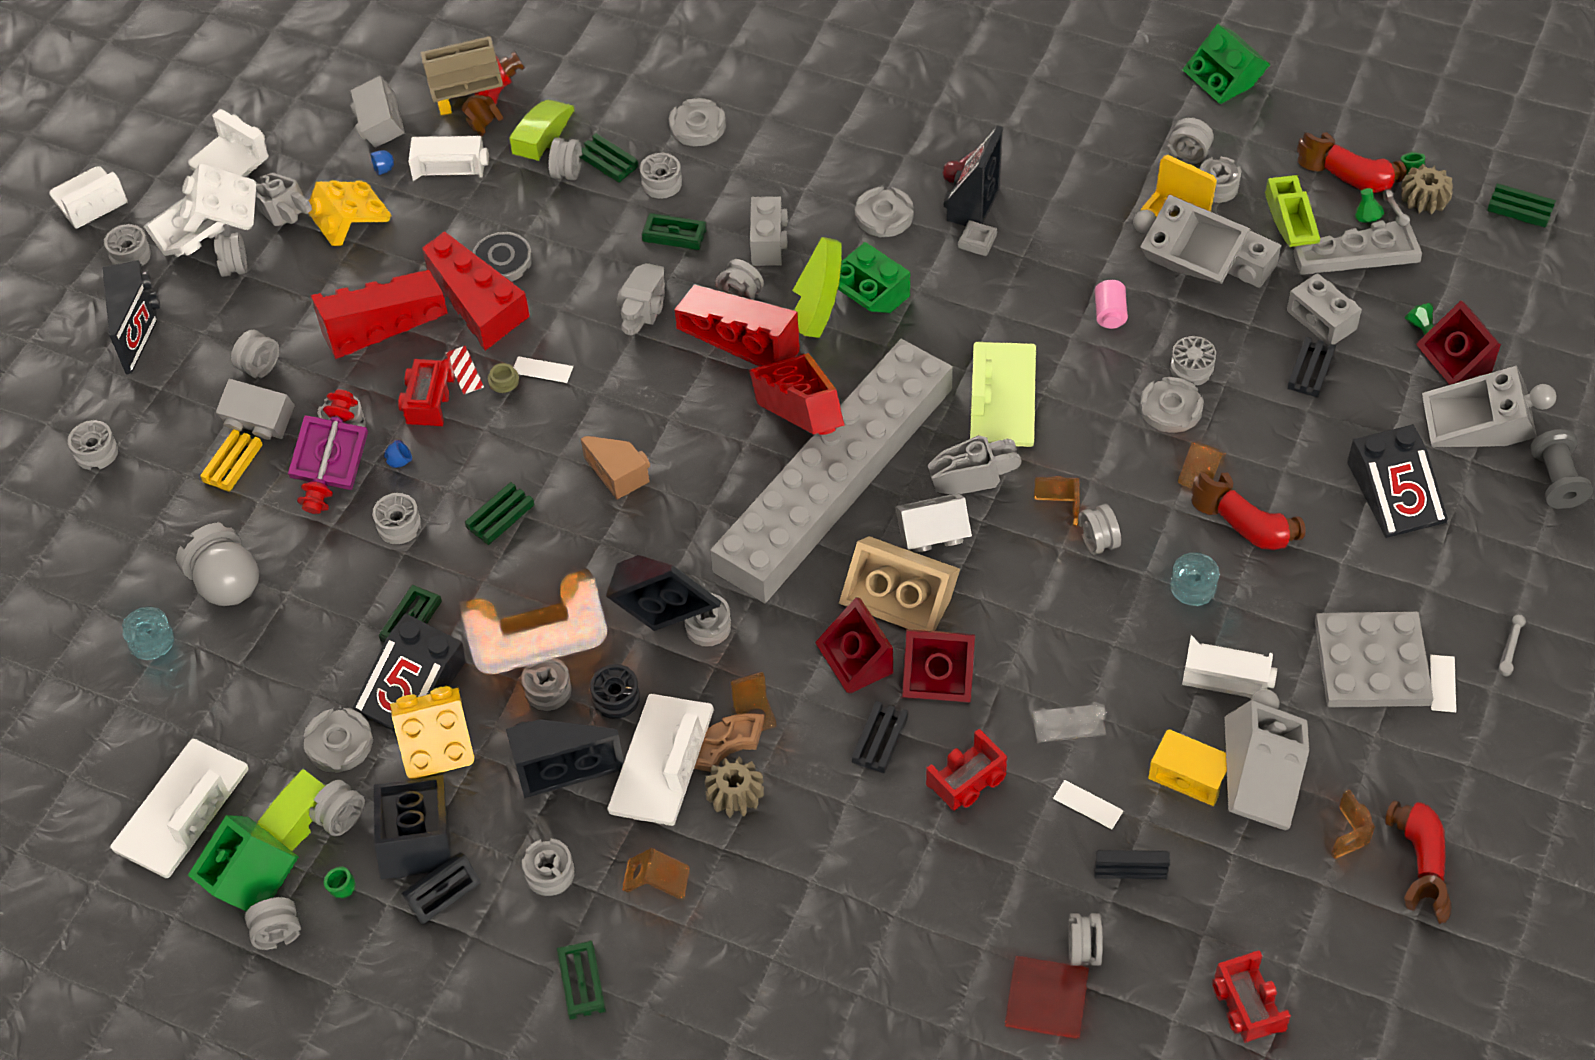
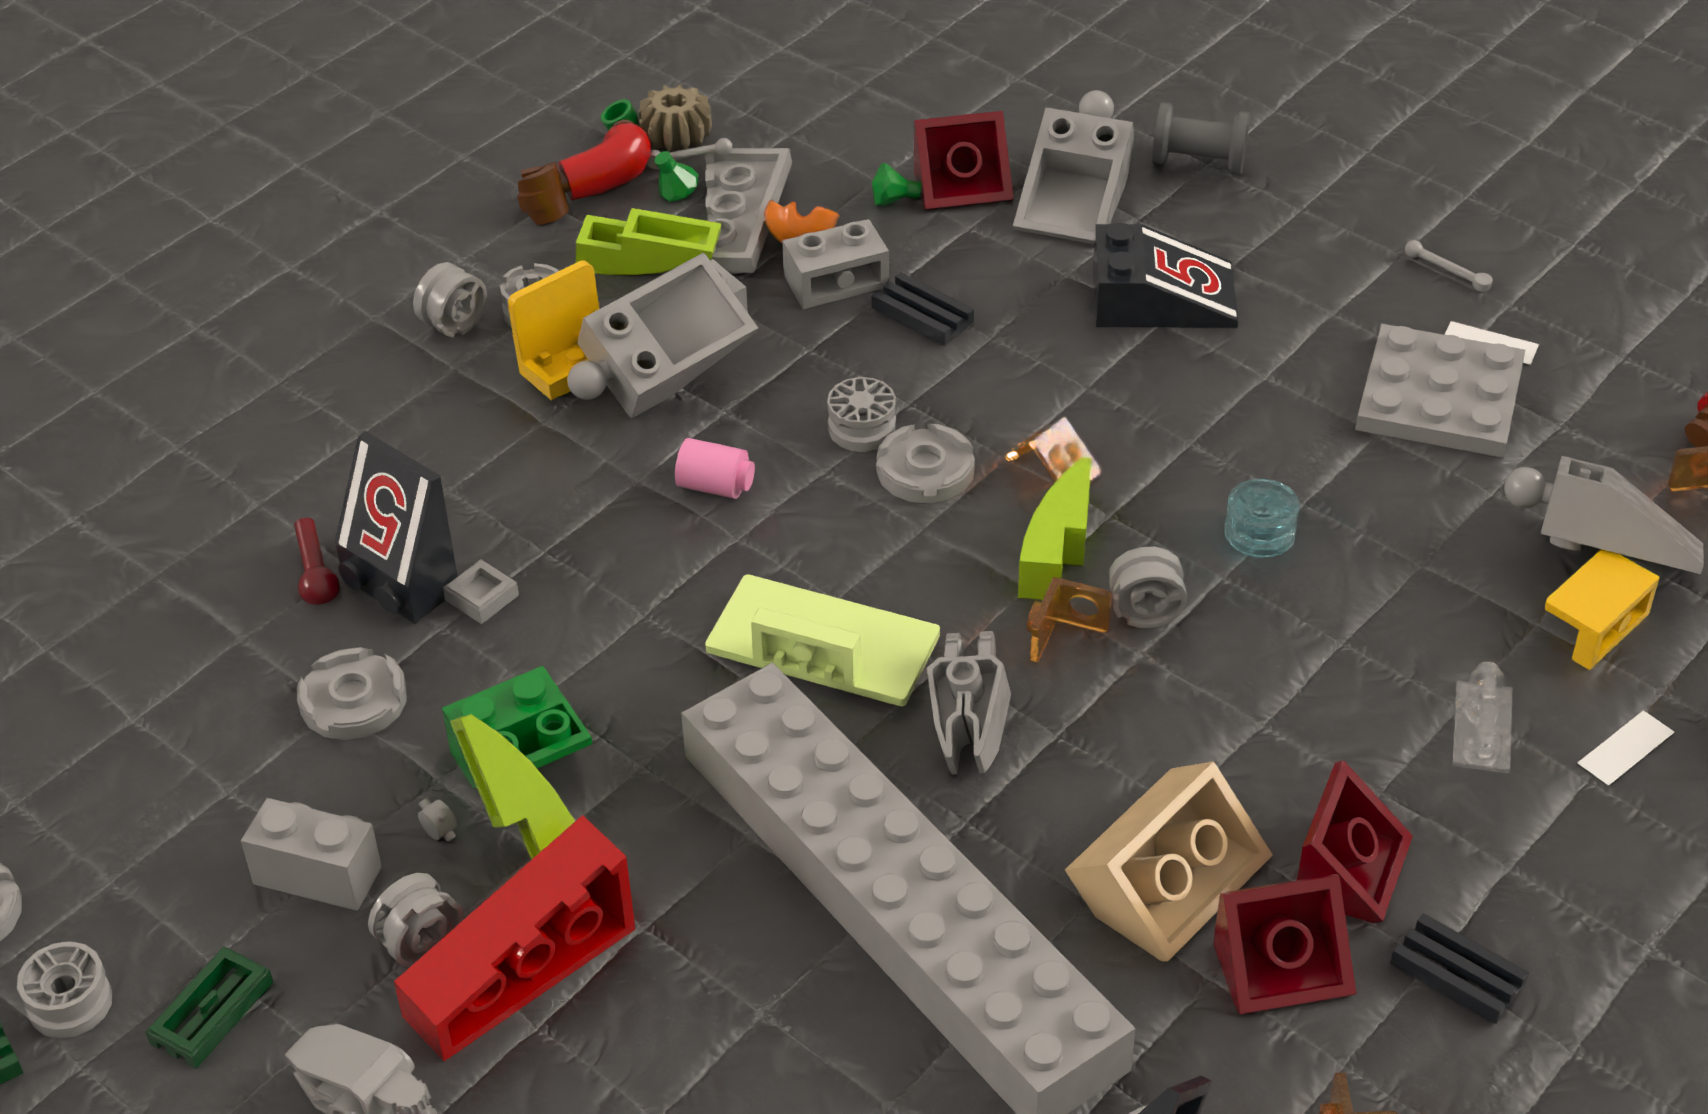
camera: 75 degrees left, 10 degrees down
(799, 394) = (752, 866): red wedge -> none
(933, 522) = (1065, 777): brick -> none
(968, 772) = (1559, 863): red window -> none
(1134, 478) = (1056, 532): none -> lime slope
(1225, 65) = (321, 230): green slope -> none
(1227, 670) = (1432, 526): white window -> none
(1260, 528) = (1183, 433): red piece -> none
(1351, 278) = (788, 223): none -> orange hair
(1521, 205) = (741, 58): dark green tile -> none

